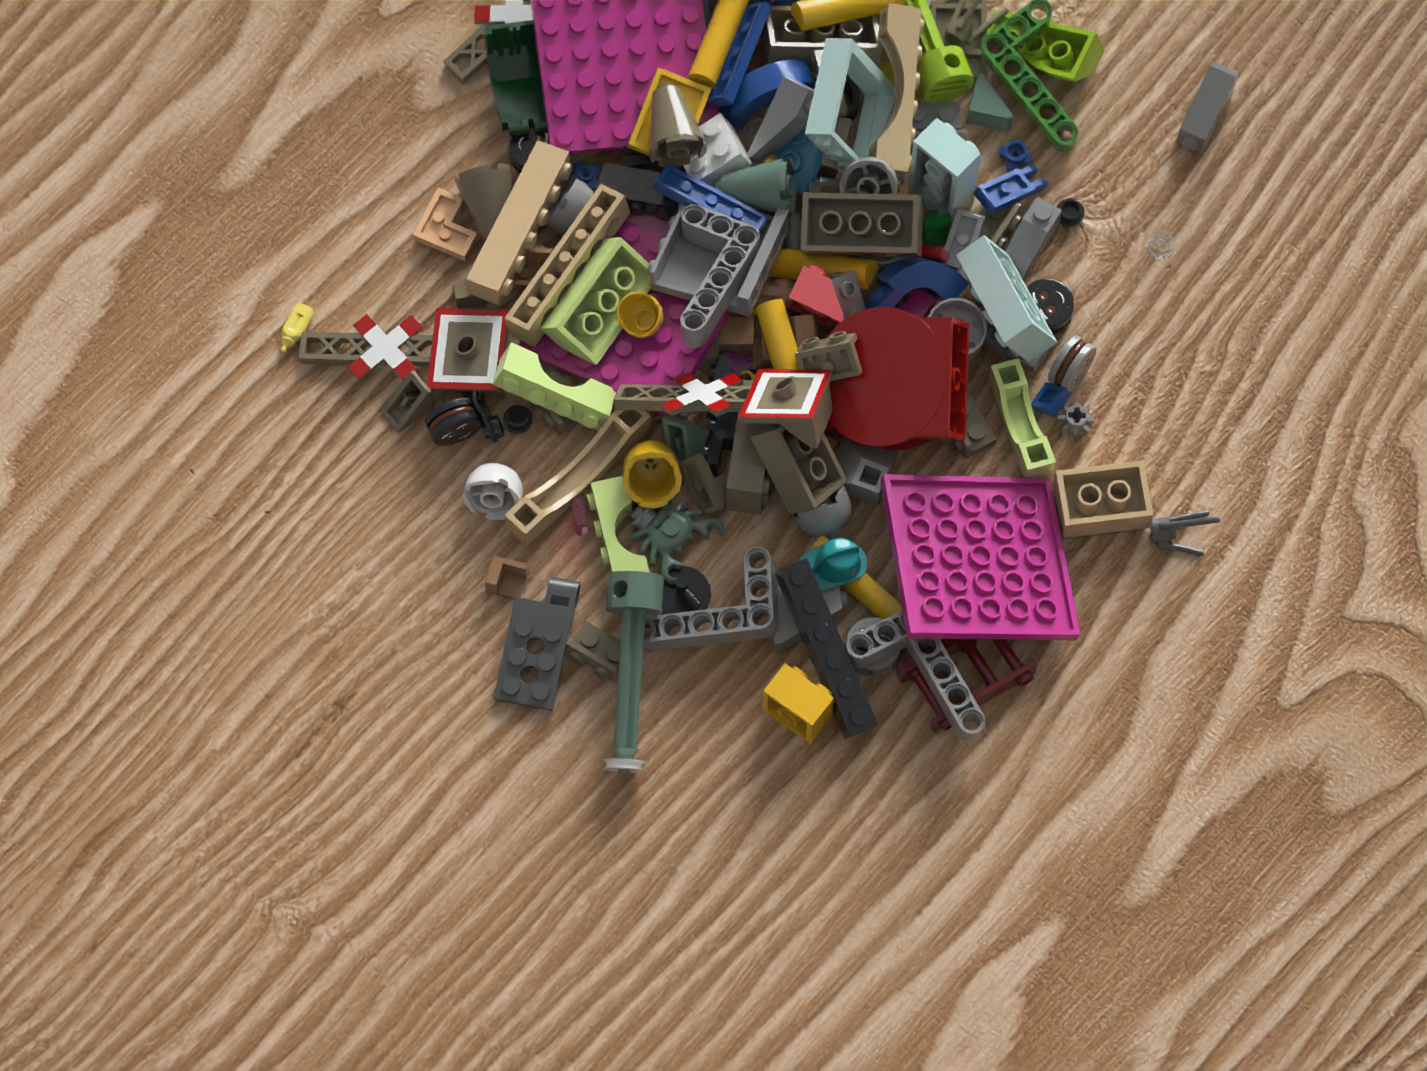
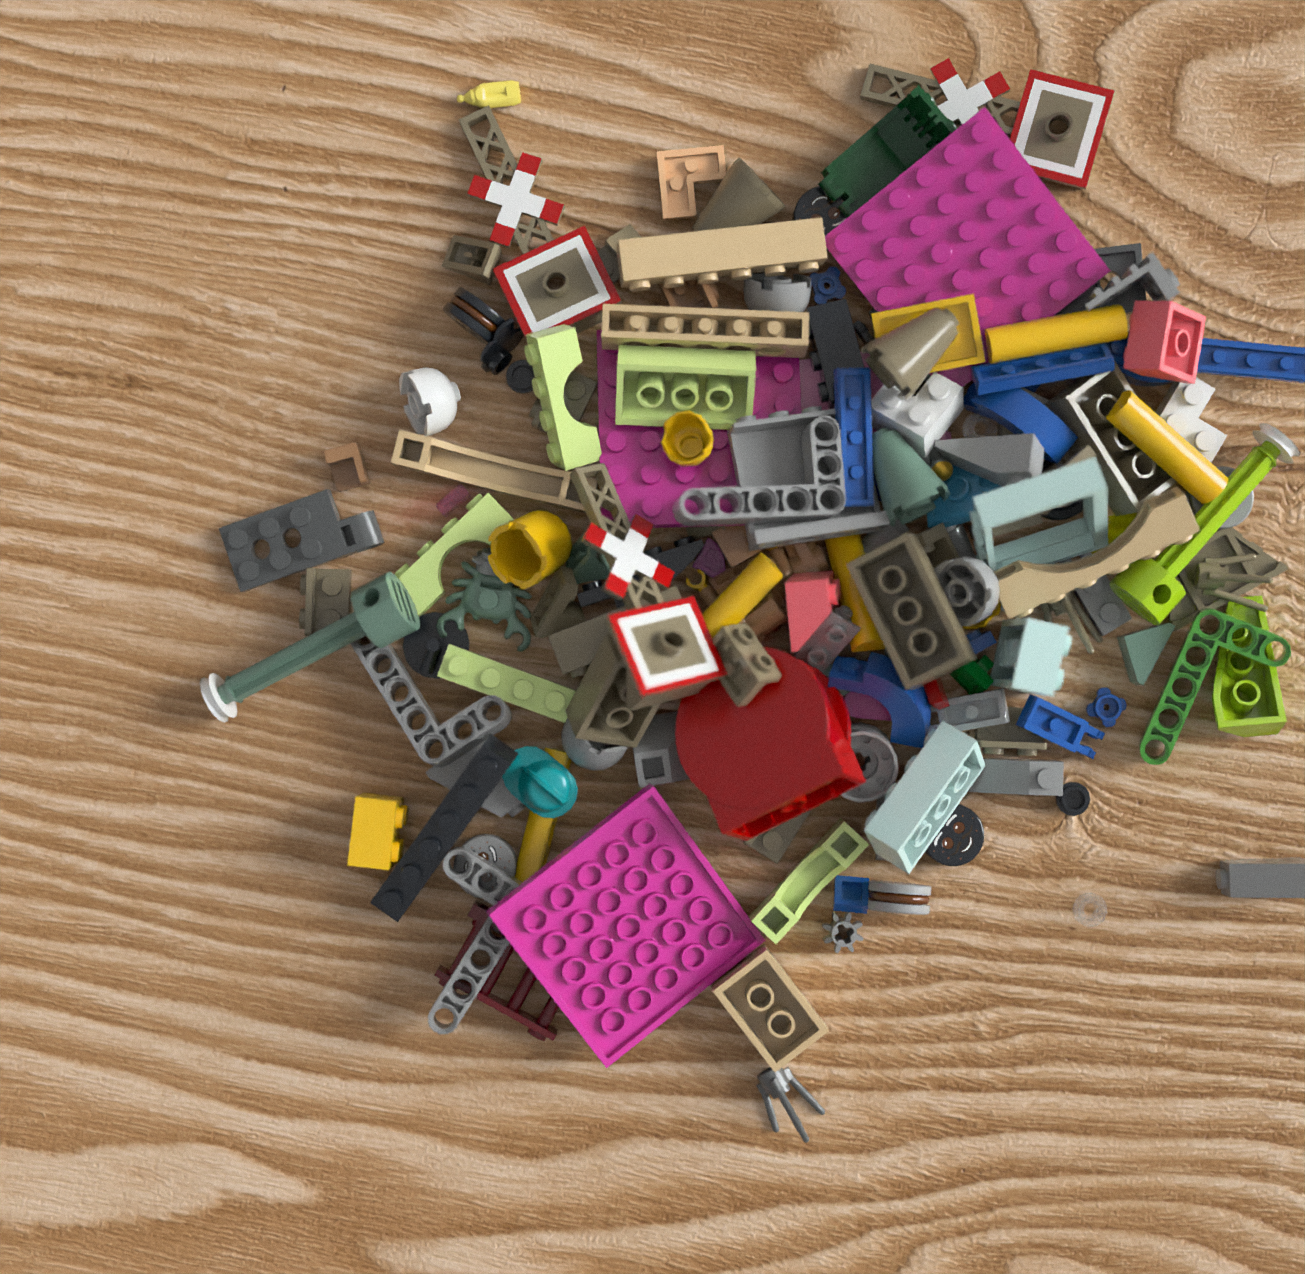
camera: 60 degrees right, 20 degrees up
(722, 564) = (506, 682): none -> yellowish green arch

